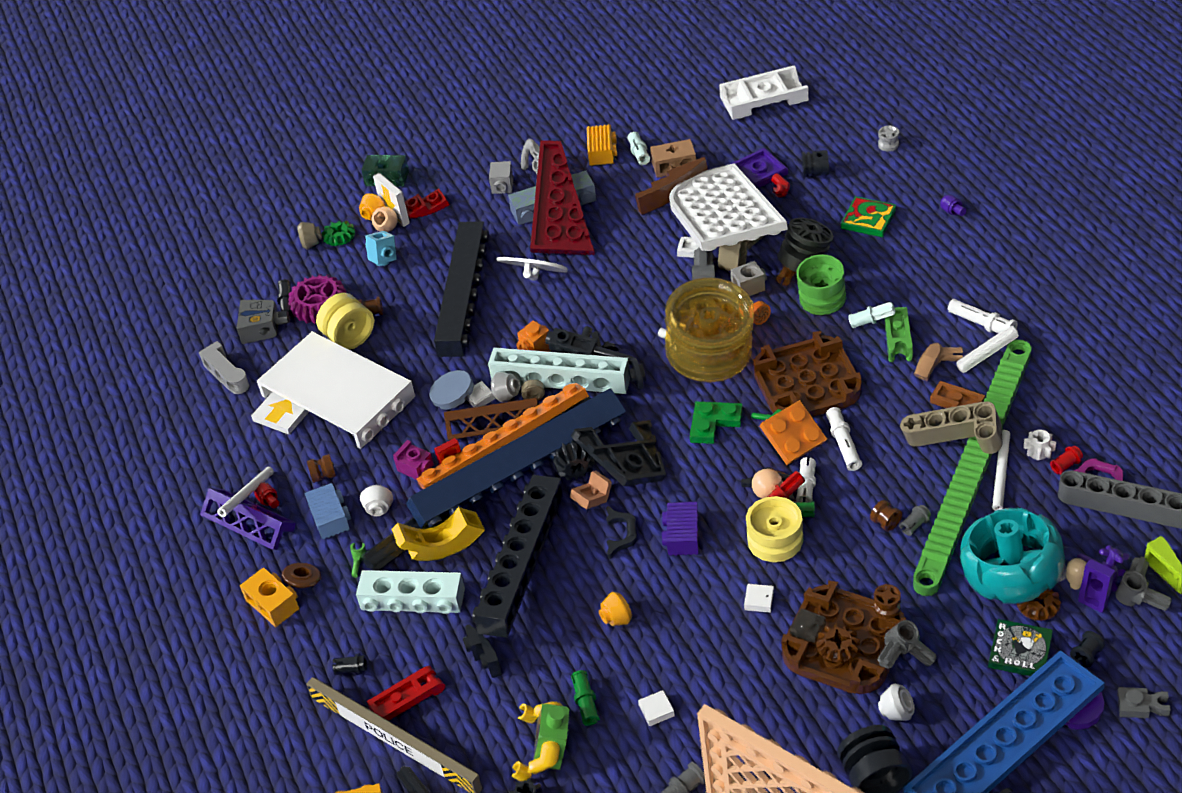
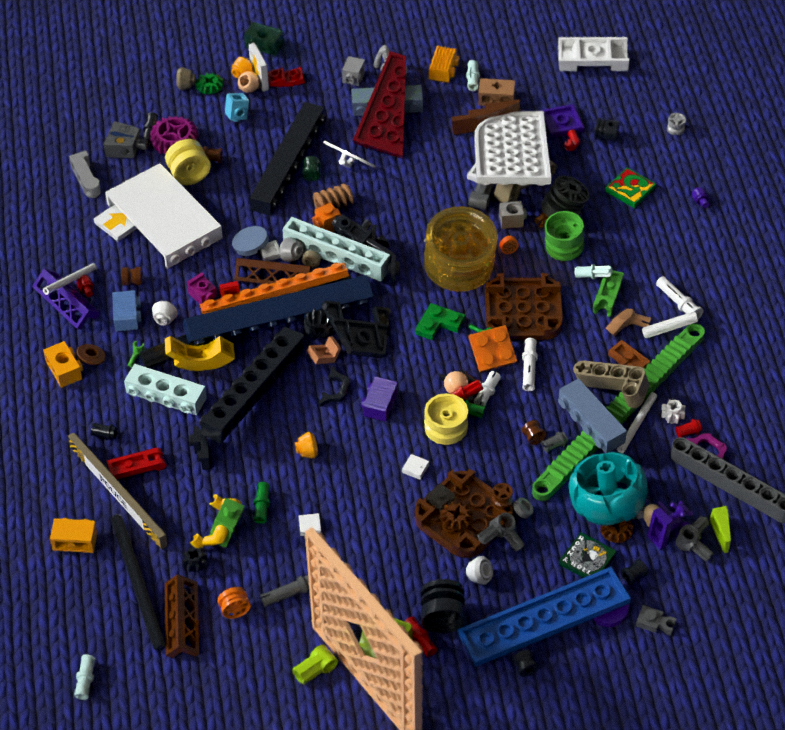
camera: 10 degrees right, 5 degrees up
(494, 292) = (311, 168): none -> clear green wheel
(537, 310) = (335, 196): none -> medium nougat piece
(914, 609) = (523, 507): none -> light grey tile
(951, 475) = (592, 416): none -> sand blue brick

